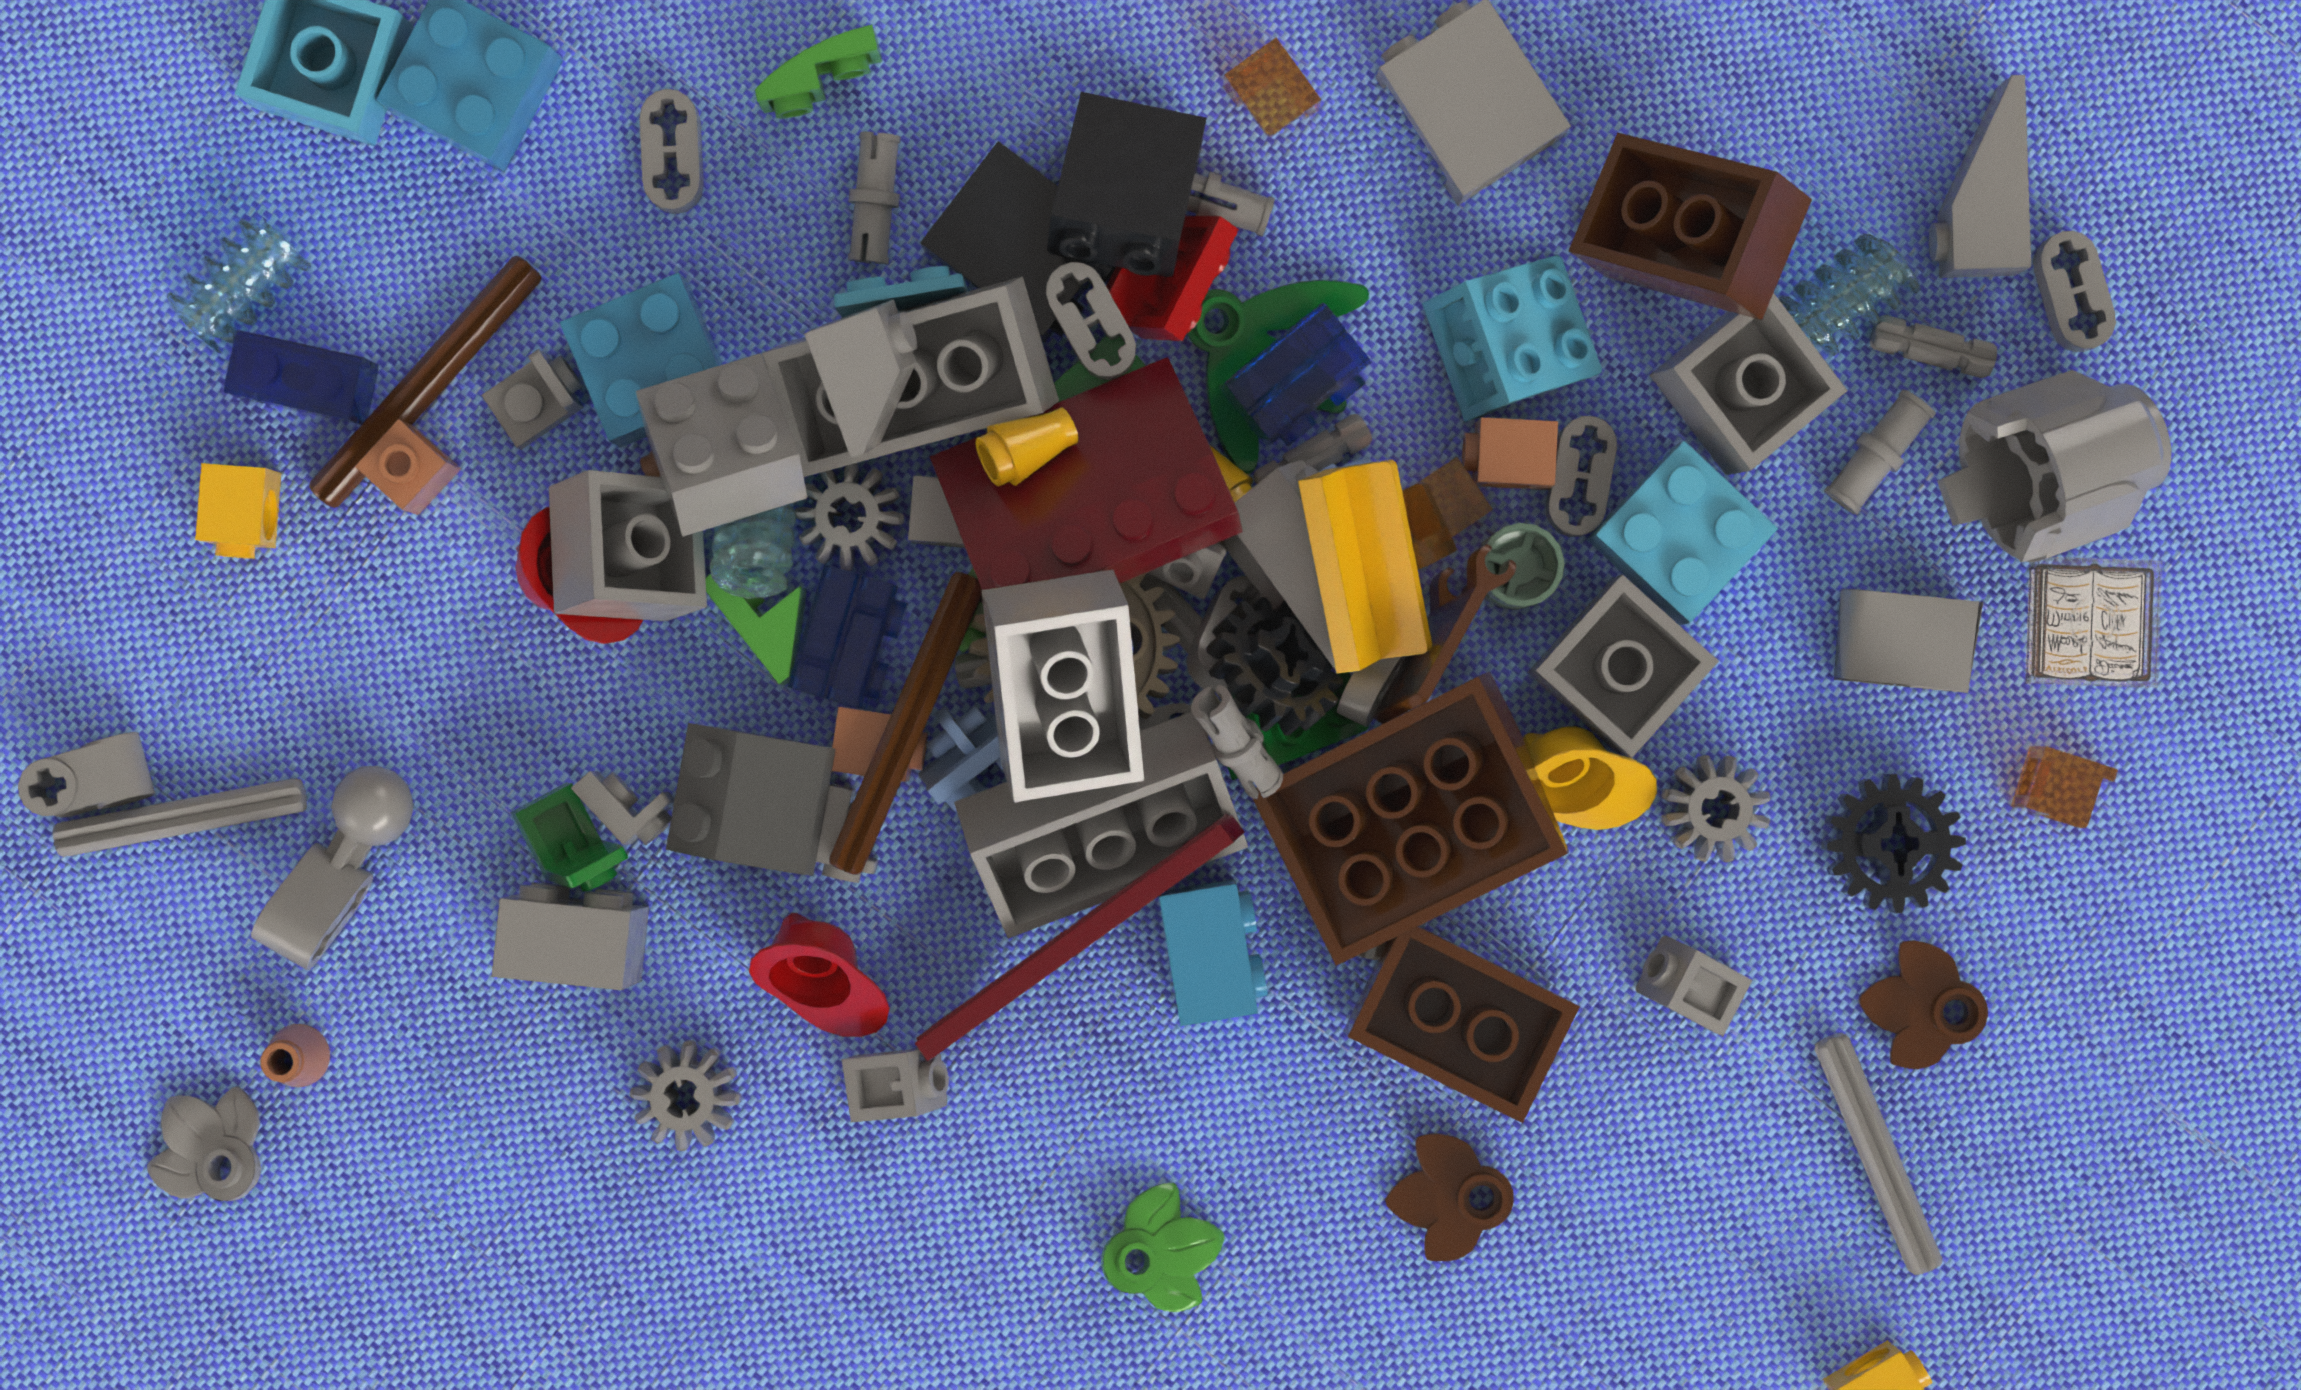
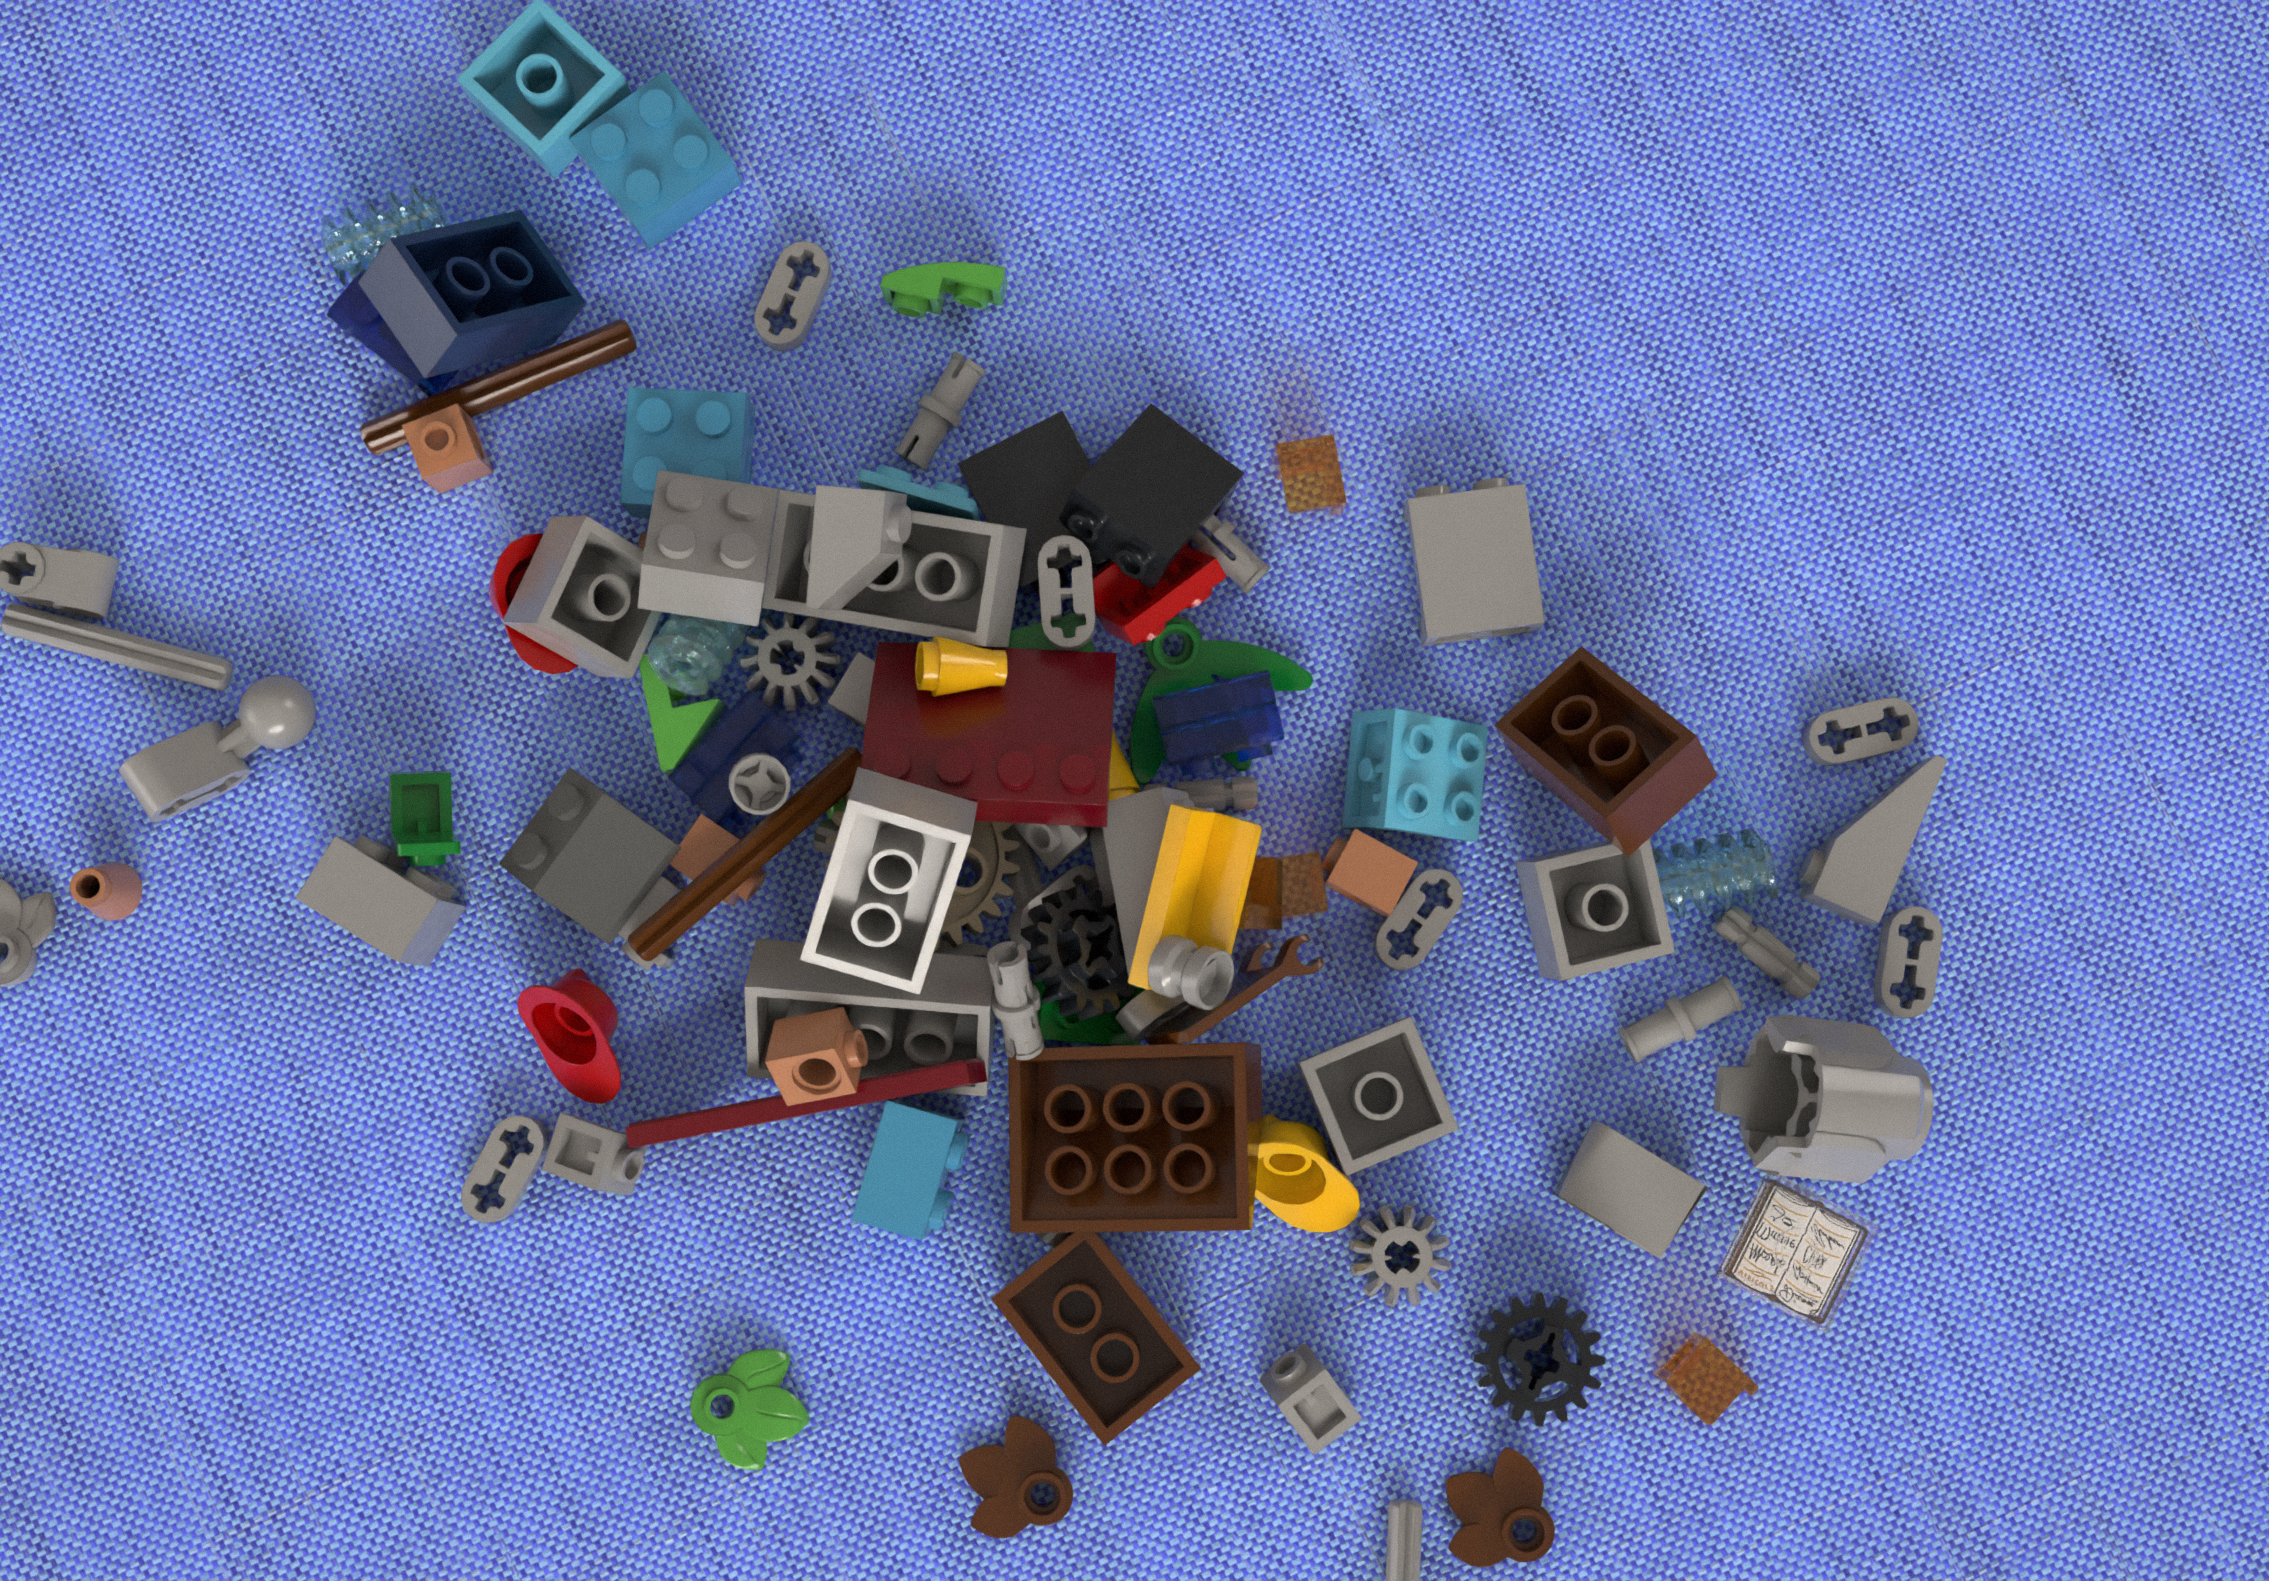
camera: 25 degrees right, 5 degrees down
(238, 509) = (292, 416): yellow brick -> none
(359, 302) = (471, 292): none -> dark blue brick
(535, 398) = (581, 443): light grey bracket -> none
(612, 802) = (475, 806): light grey bracket -> none
(663, 1096) = (395, 1072): light grey gear -> none
(798, 1138) = (492, 1162): none -> light grey beam
(895, 650) = (767, 786): none -> light grey wheel
(960, 754) = (773, 916): light blue hips -> none
(1070, 886) = (816, 1056): none -> nougat brick
(1398, 633) = (1196, 974): none -> light grey wheel
(1537, 565) = (1342, 974): sand green wheel -> none
(1682, 533) = (1480, 1008): medium azure brick -> none
(1917, 75) = (1856, 718): none -> light grey beam

